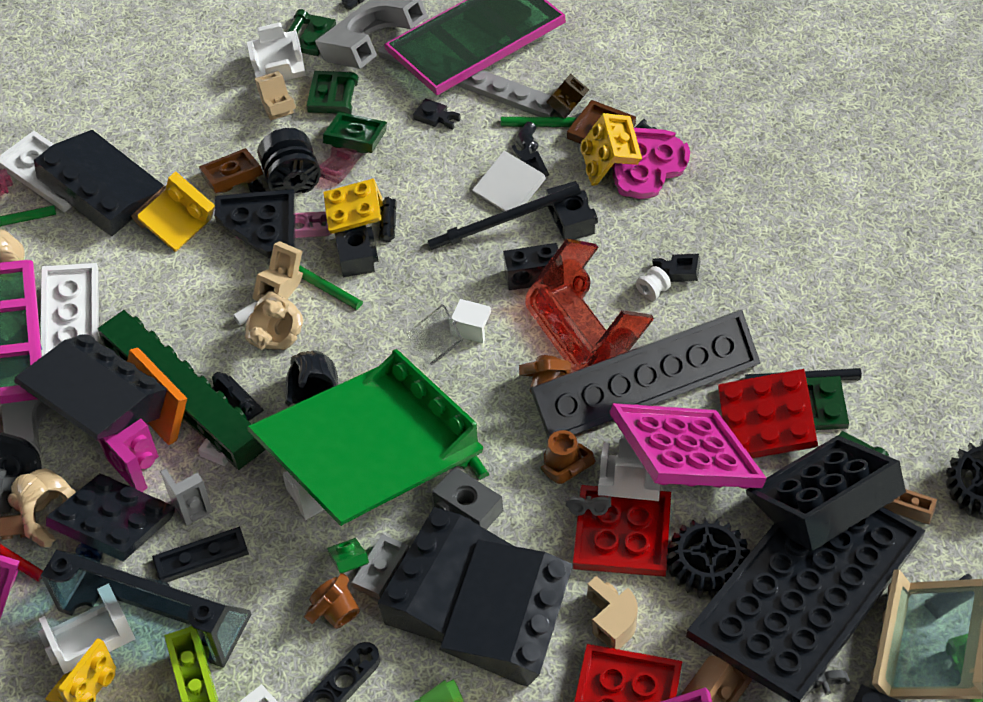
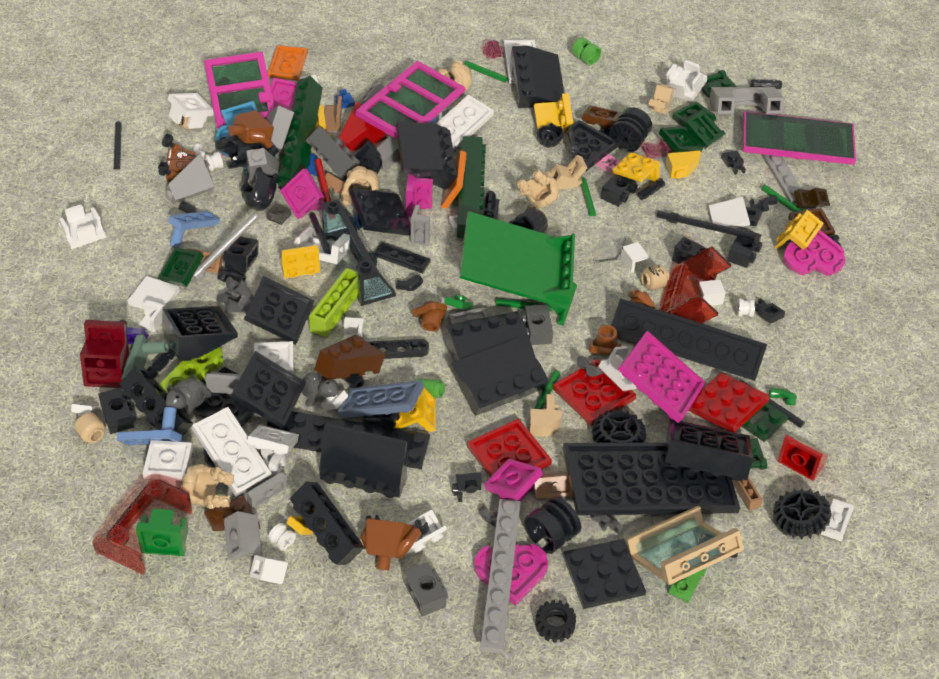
camera: 40 degrees right, 5 degrees down
(61, 615) = (320, 234): none -> black bar
(117, 99) = (586, 51): none -> bright green wheel
(198, 242) = (550, 135): none -> black hair
(255, 581) = (410, 285): none -> black arm
(364, 98) = (701, 130): none -> dark green plate
(387, 162) = (682, 163): none -> yellow slope
(400, 501) = (517, 304): none -> green bar
(523, 327) = (654, 277): none -> tan head
(574, 584) = (547, 390): none -> green bar
(602, 292) = (712, 291): none -> white panel
(802, 353) = (784, 394): none -> green arm
(917, 412) = (802, 457): none -> red slope

